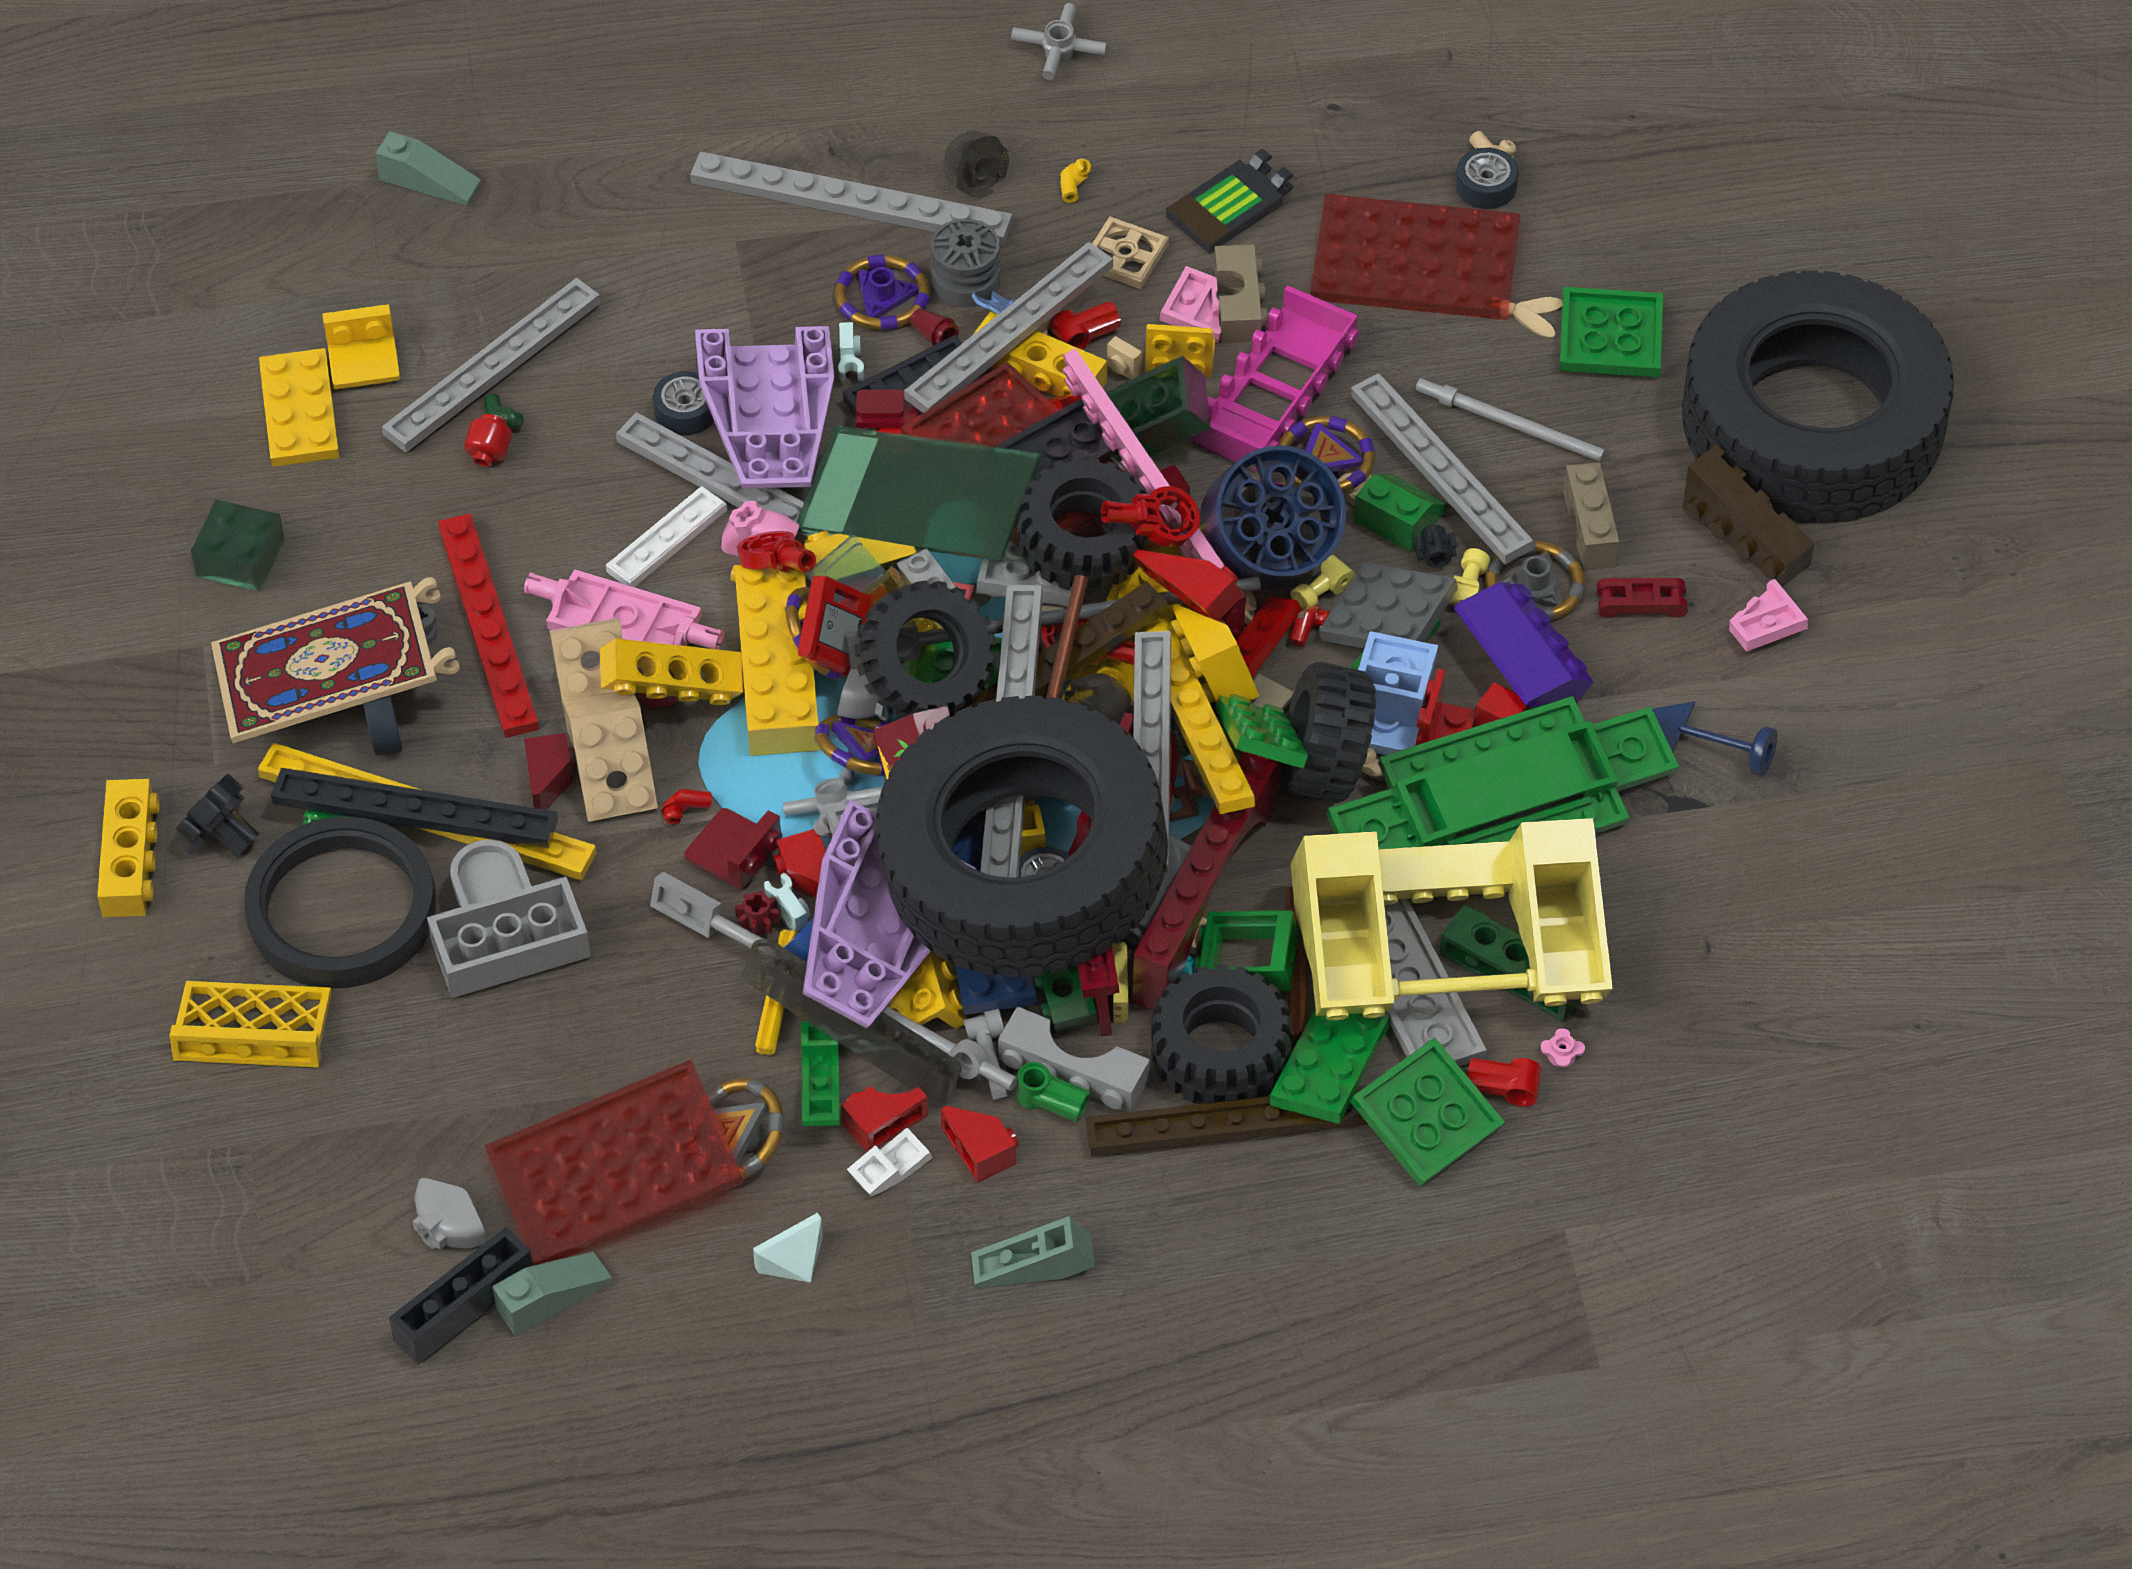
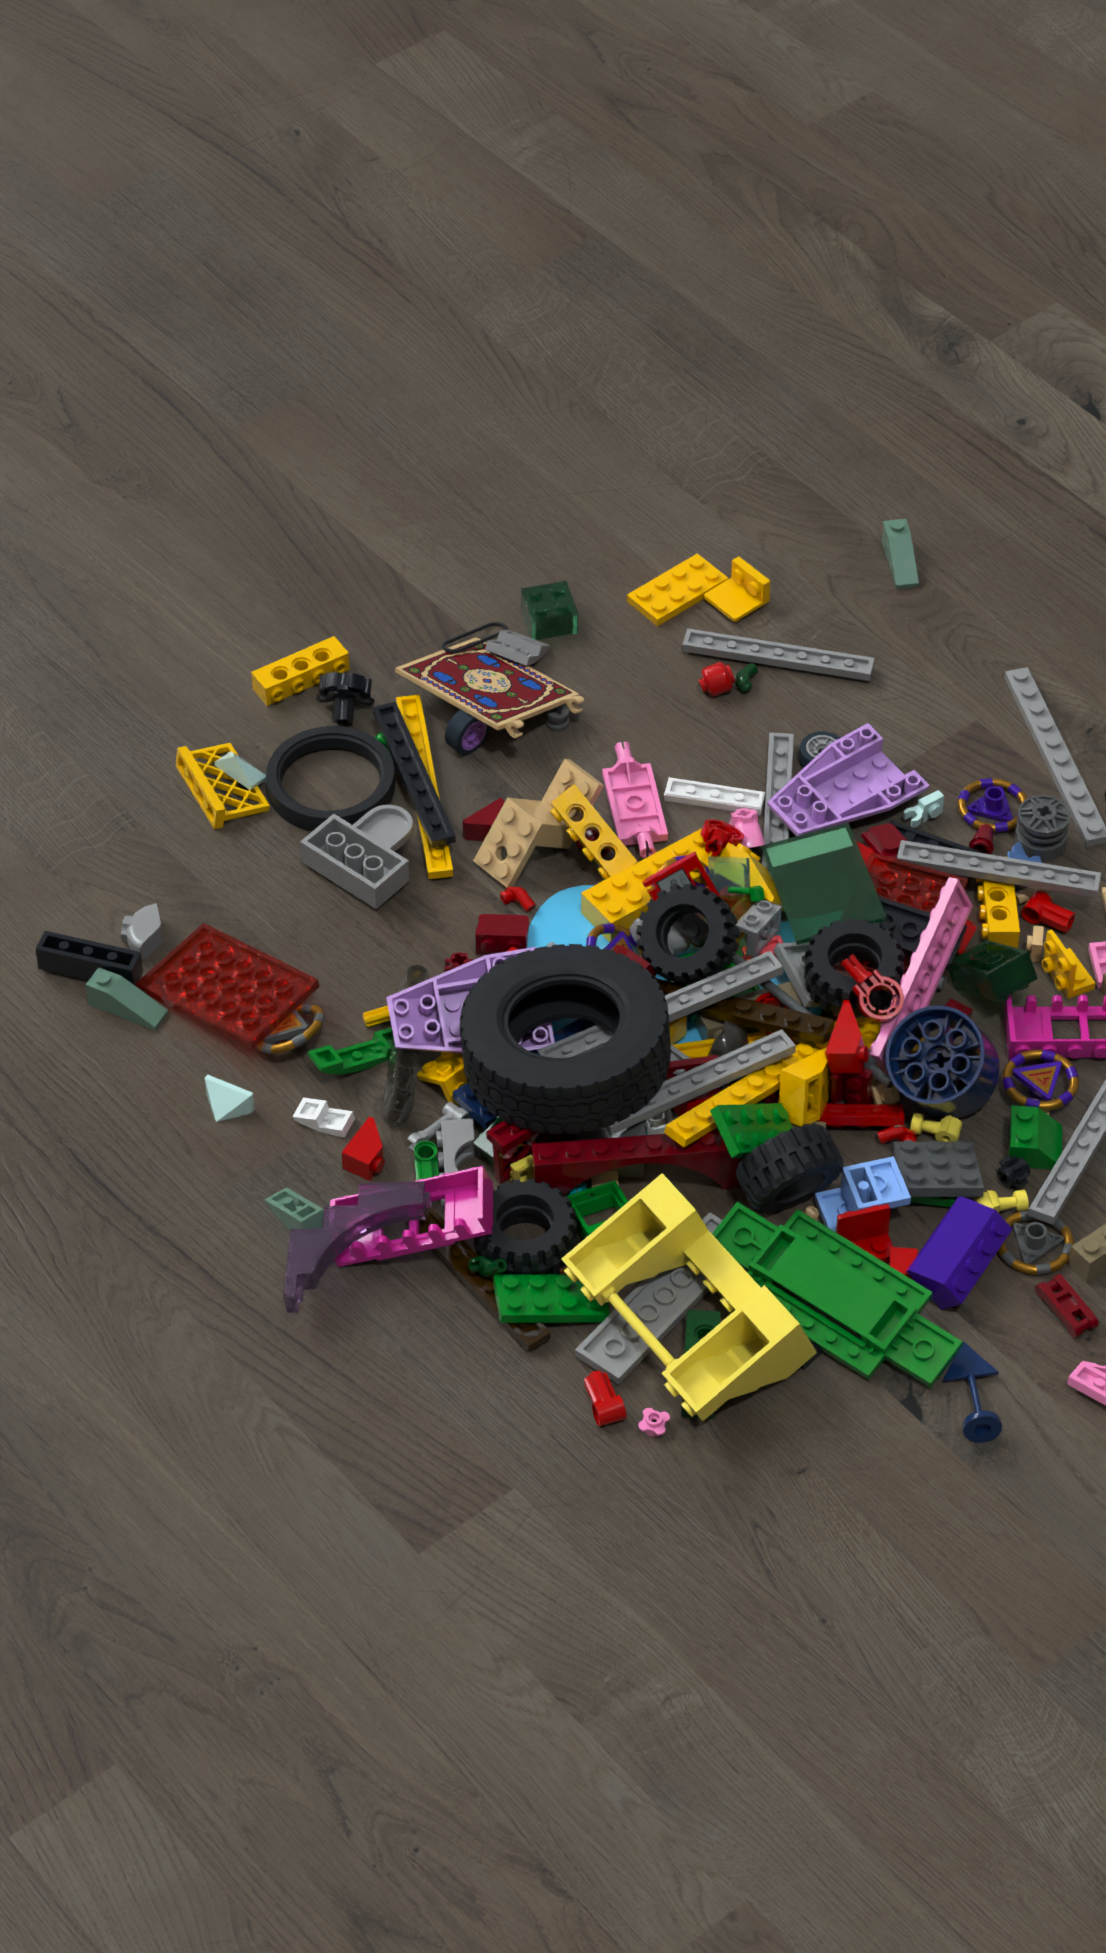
camera: 60 degrees right, 5 degrees down
(231, 639) = (471, 632): none -> black piece
(249, 990) = (240, 770): none -> light aqua slope
(271, 607) = (517, 647): none -> light grey slope
(488, 626) = (587, 744): red plate -> none
(702, 915) = (439, 940): light grey bar -> none
(879, 1117) = (349, 1094): red arch -> none
(894, 558) = (756, 892): none -> green hand
(1067, 637) = (682, 1028): copper bar -> none
(1123, 1256) = (316, 1248): none -> clear purple arch
(1171, 1066) = (467, 1216): none -> dark pink window
(1253, 1097) = (486, 1266): none -> dark green arm
(1427, 1111) = (543, 1365): green plate -> none

